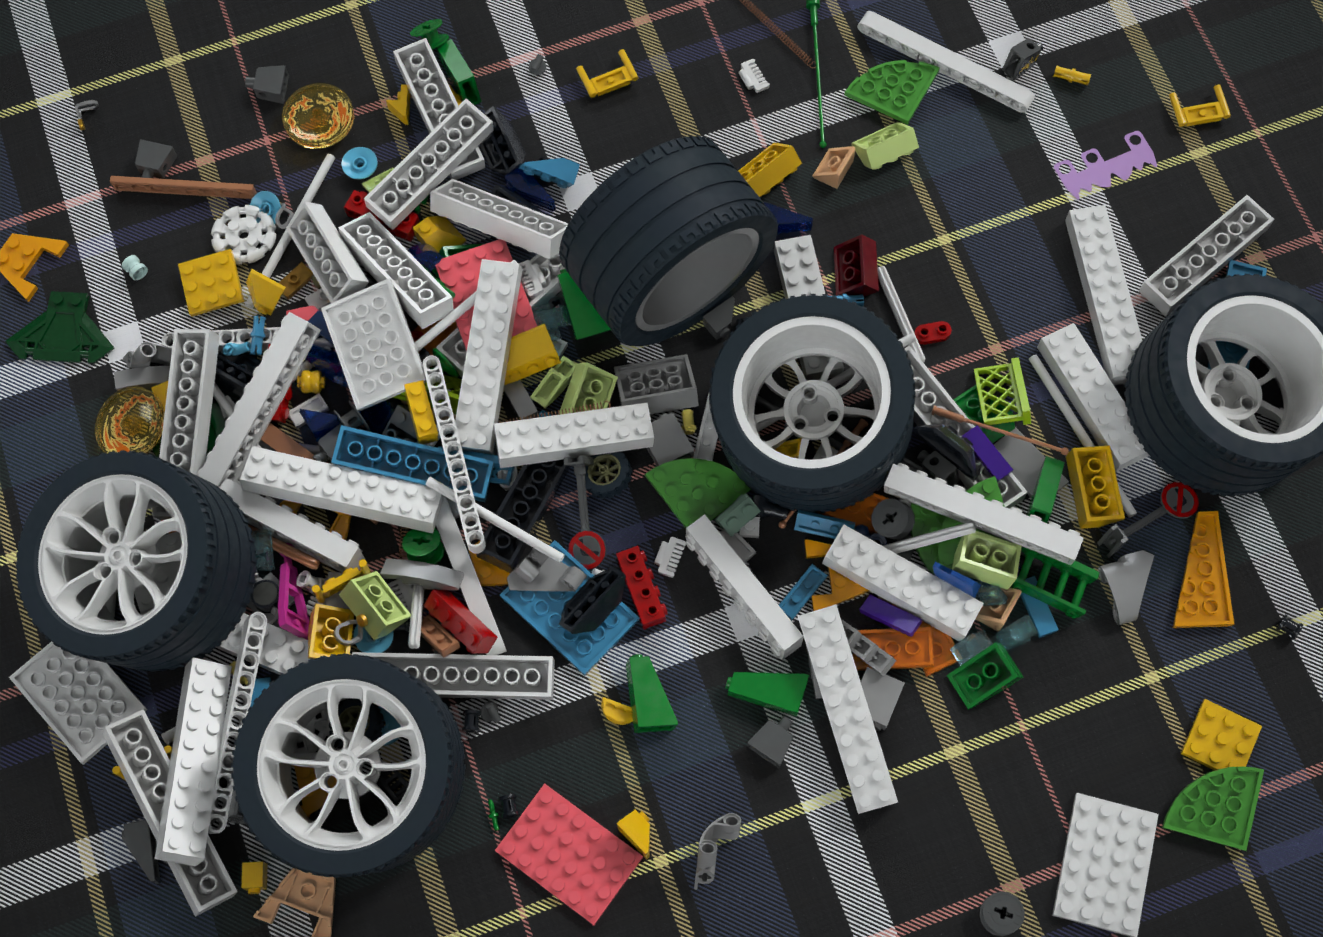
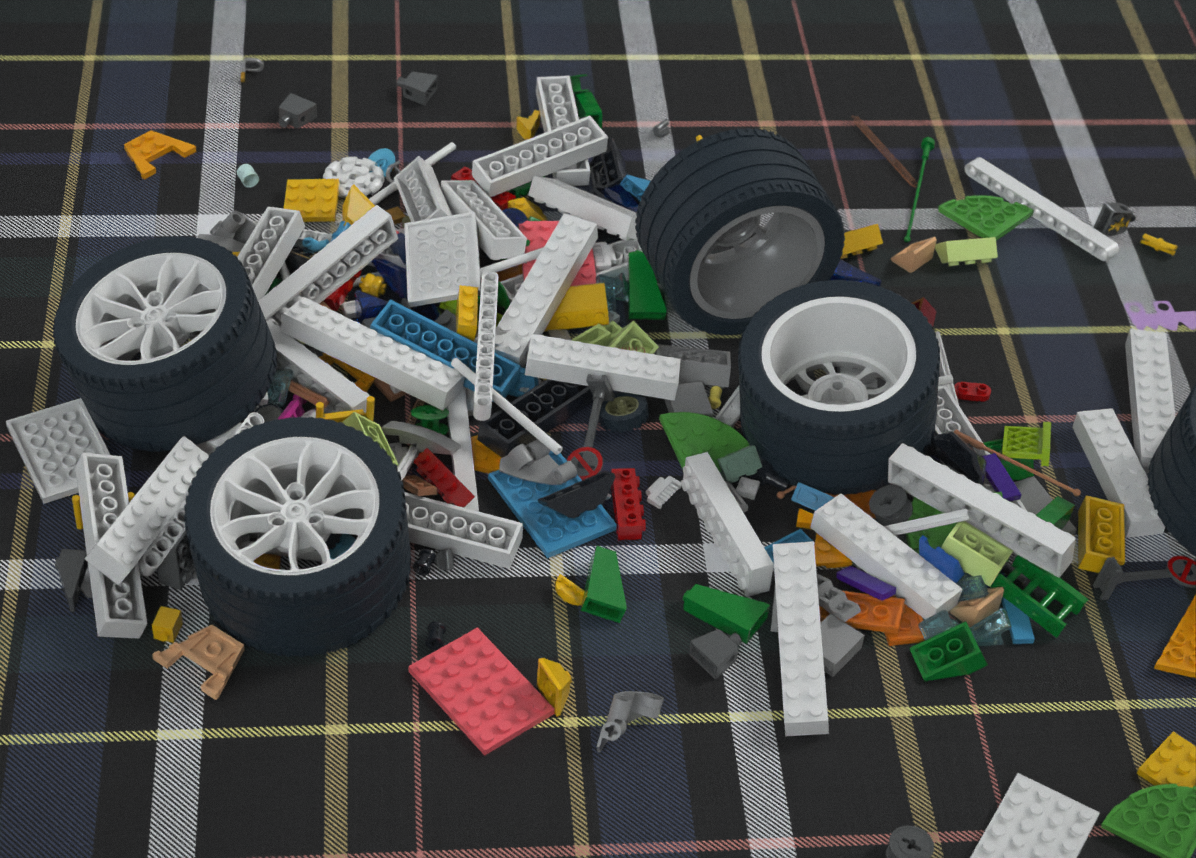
camera: 10 degrees right, 25 degrees down
(62, 332) = (165, 205): dark green plate -> none
(183, 187) = (313, 134): nougat tile -> none
(318, 115) = (452, 114): clear yellow dish -> none
(356, 157) = (474, 151): medium azure dish -> none
(493, 815) = (417, 640): green hand -> none
(749, 78) = (856, 180): white piece -> none
(1073, 421) = (1093, 486): white piece -> none
(1127, 583) = (1113, 618): light grey panel -> none

